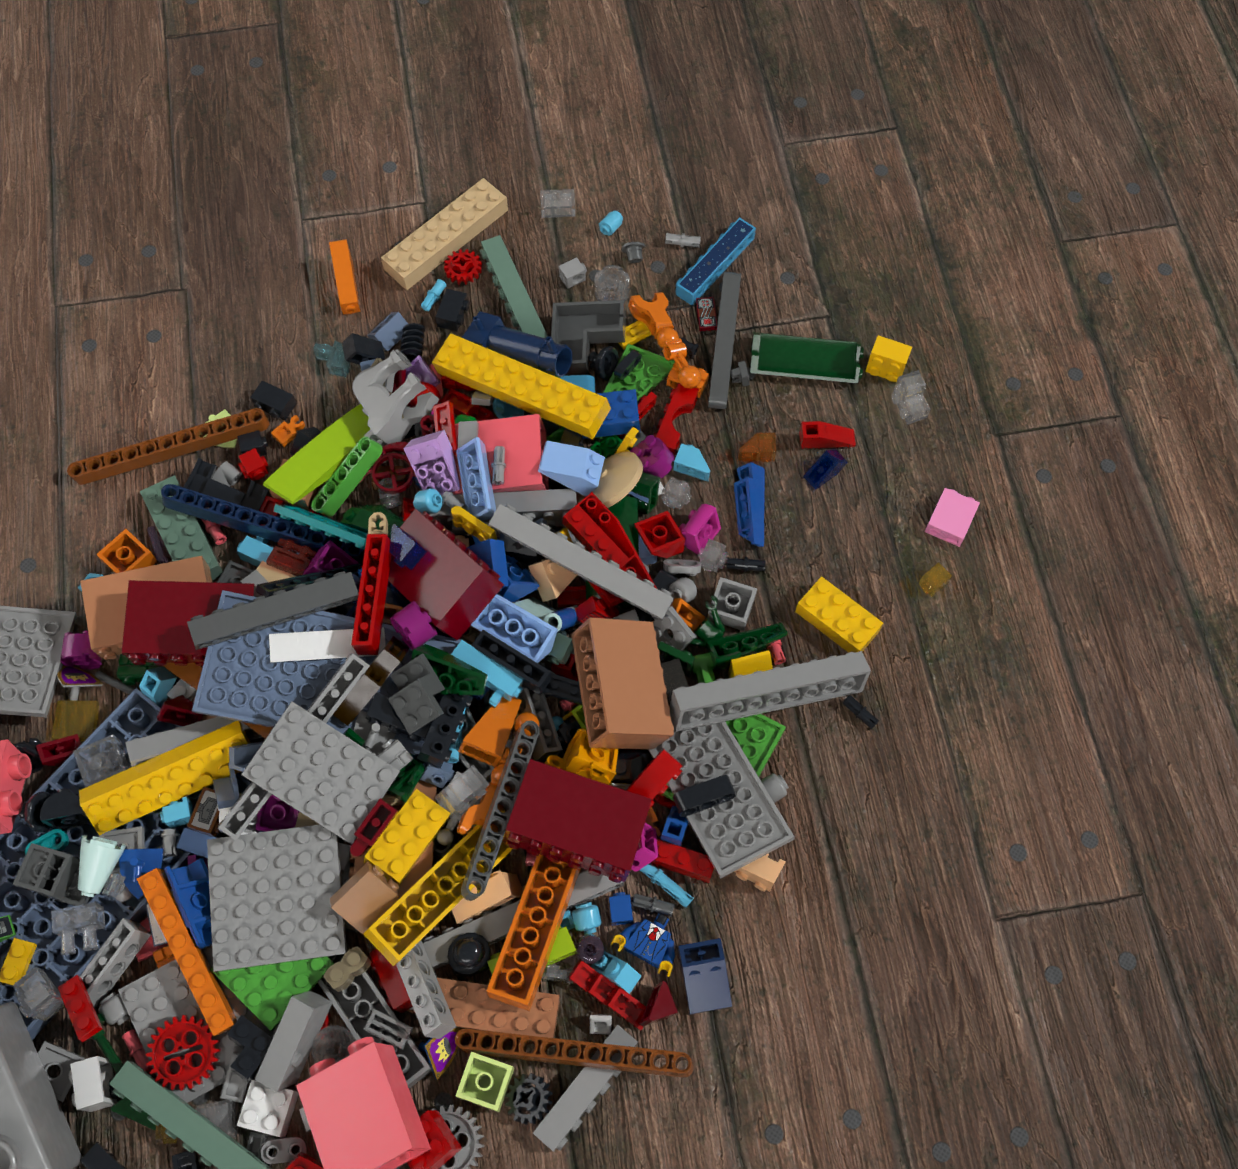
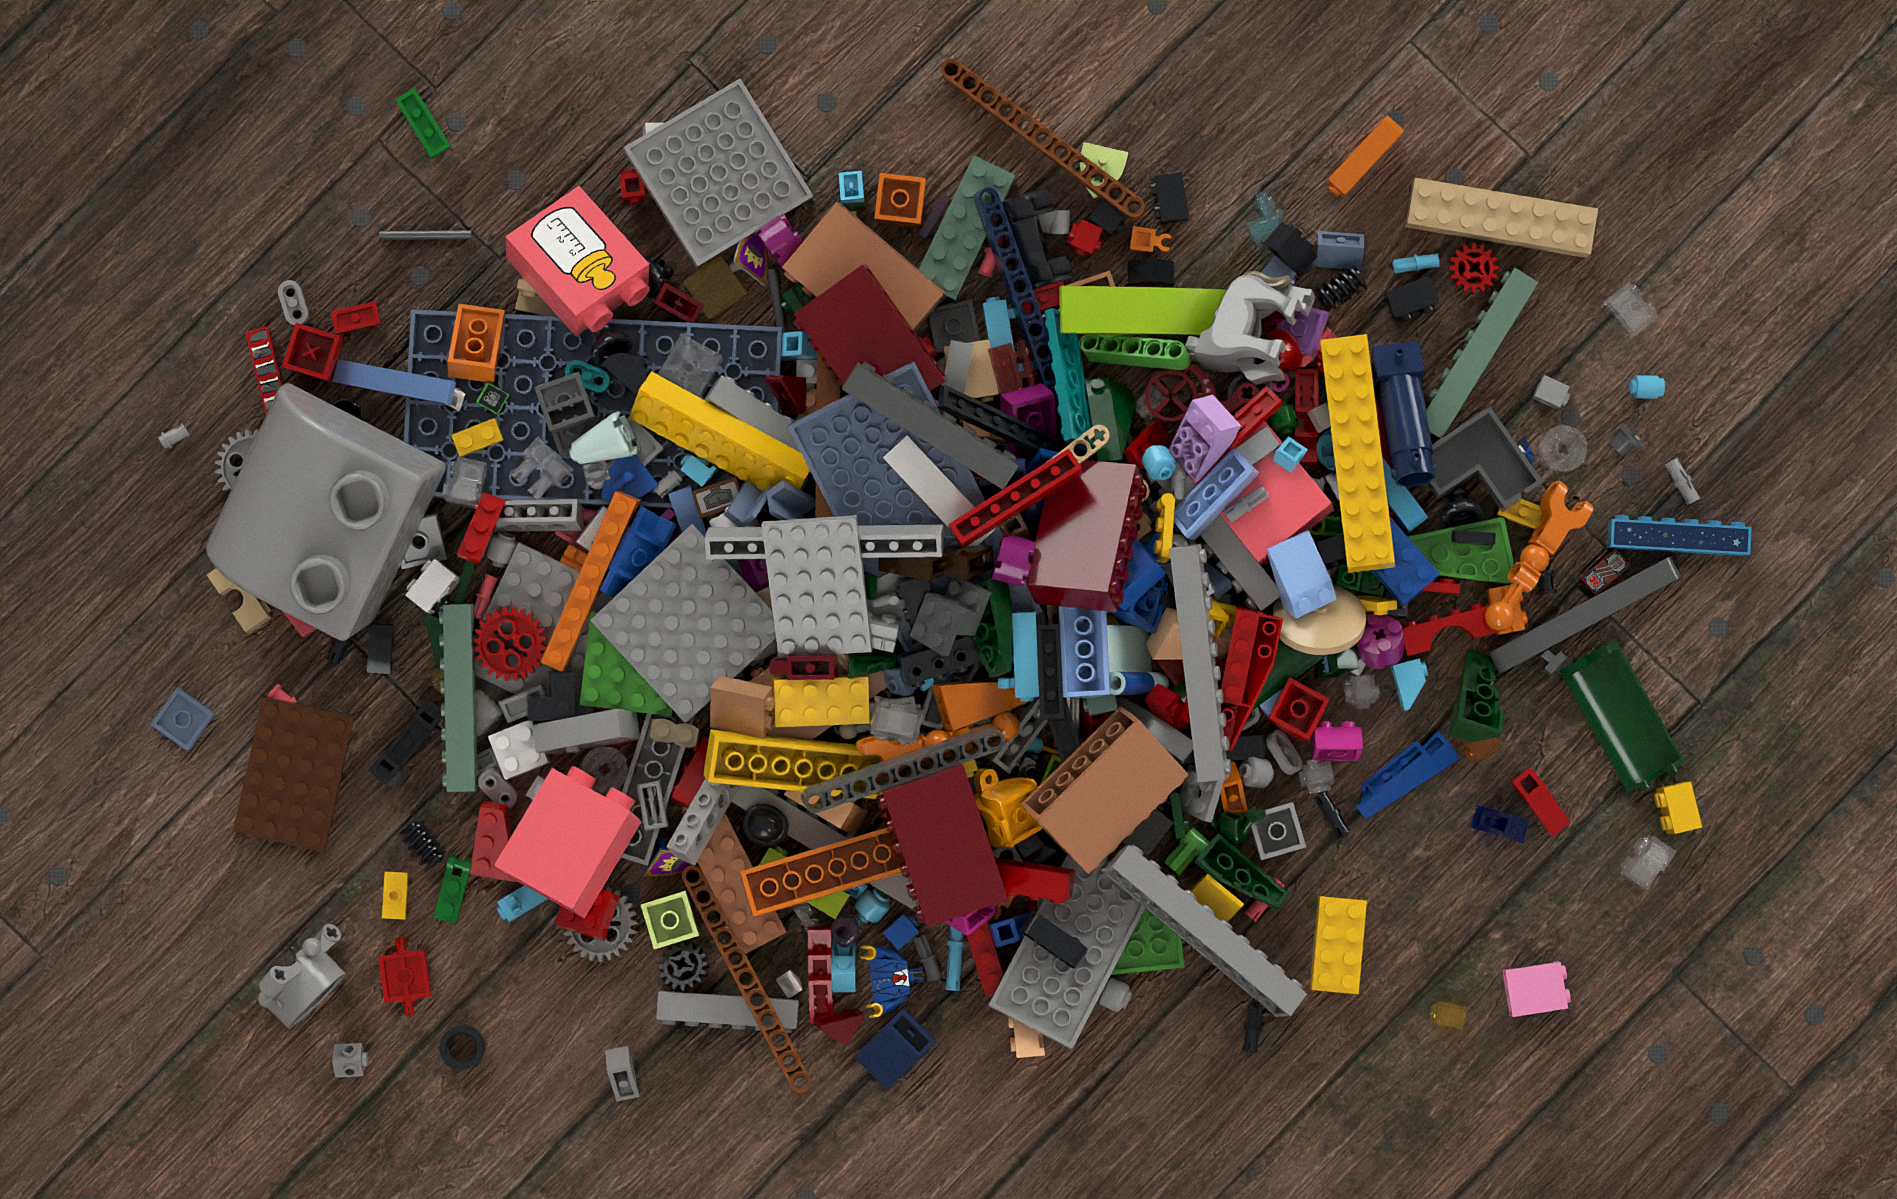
camera: 60 degrees right, 20 degrees up
(405, 548) = (1085, 489): clear blue slope -> none
(488, 420) = (1289, 454): none -> medium azure slope
(736, 429) = (1477, 706): none -> dark green wedge

